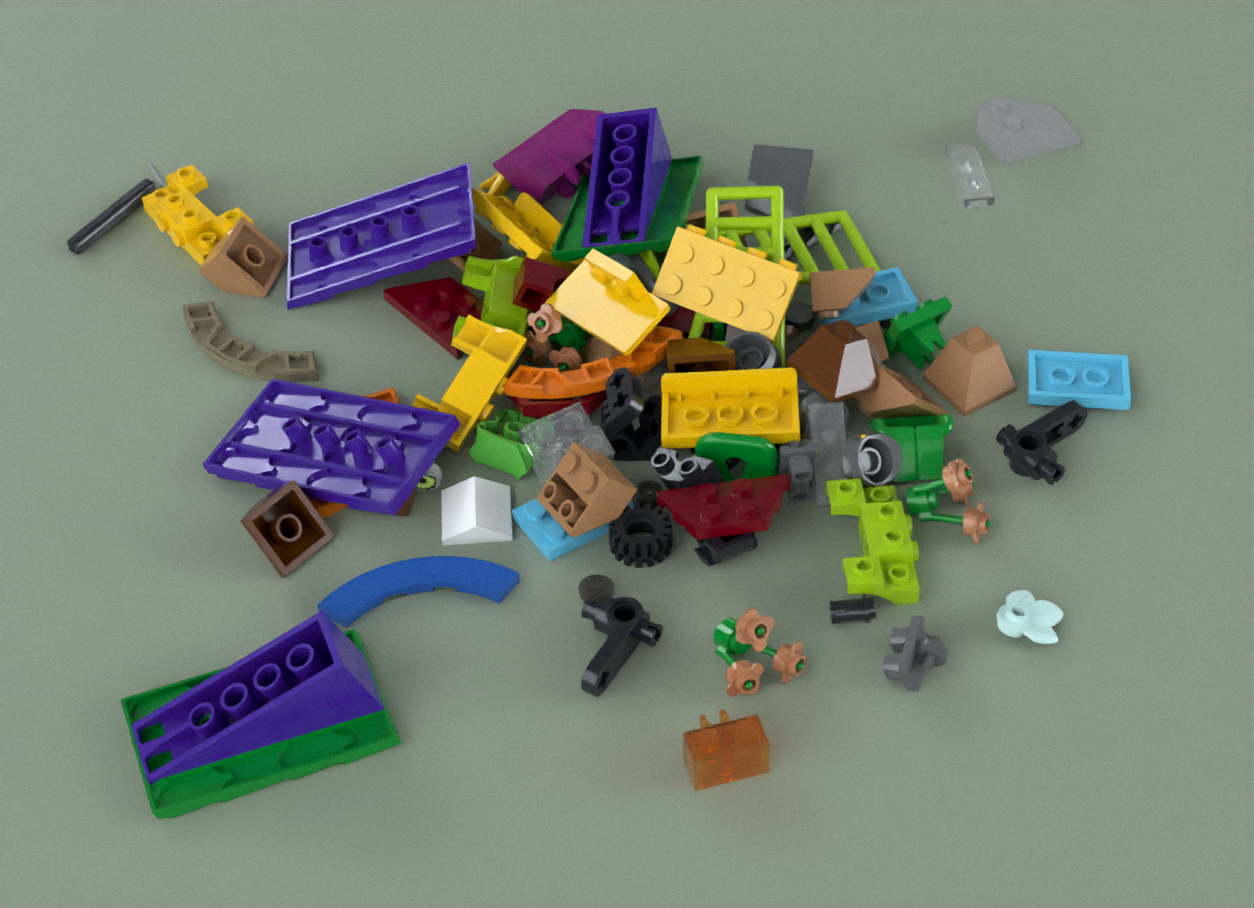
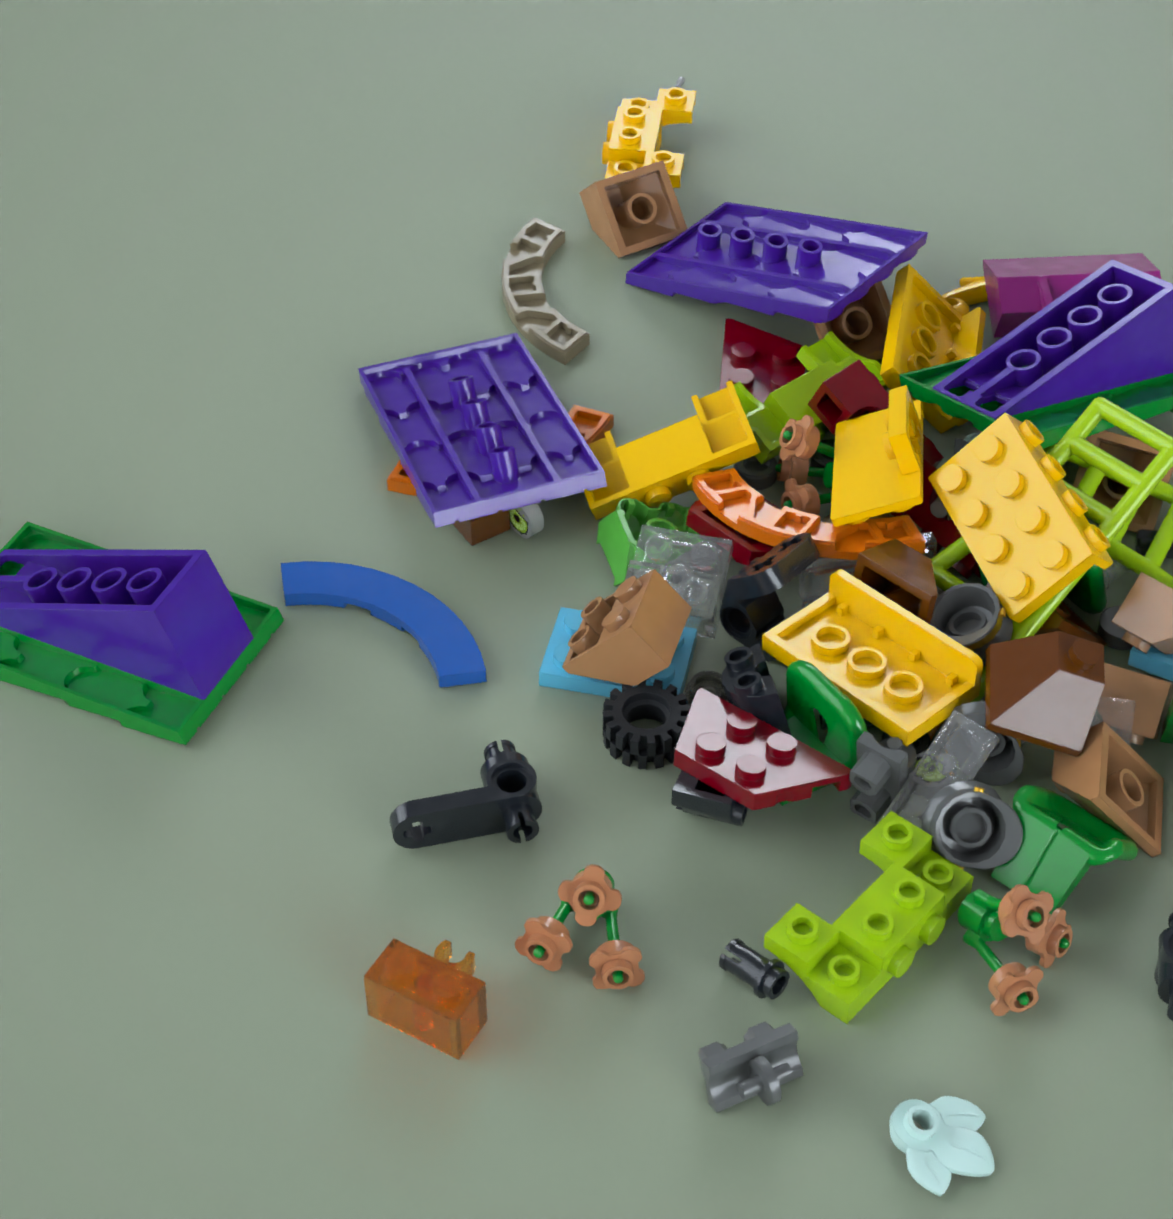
camera: 45 degrees right, 0 degrees up
(110, 217) = (578, 102): black axle -> none
(286, 527) = (339, 473): reddish brown slope -> none
(476, 512) = (532, 587): white slope -> none
(597, 586) = (537, 743): clear smoke plate -> none

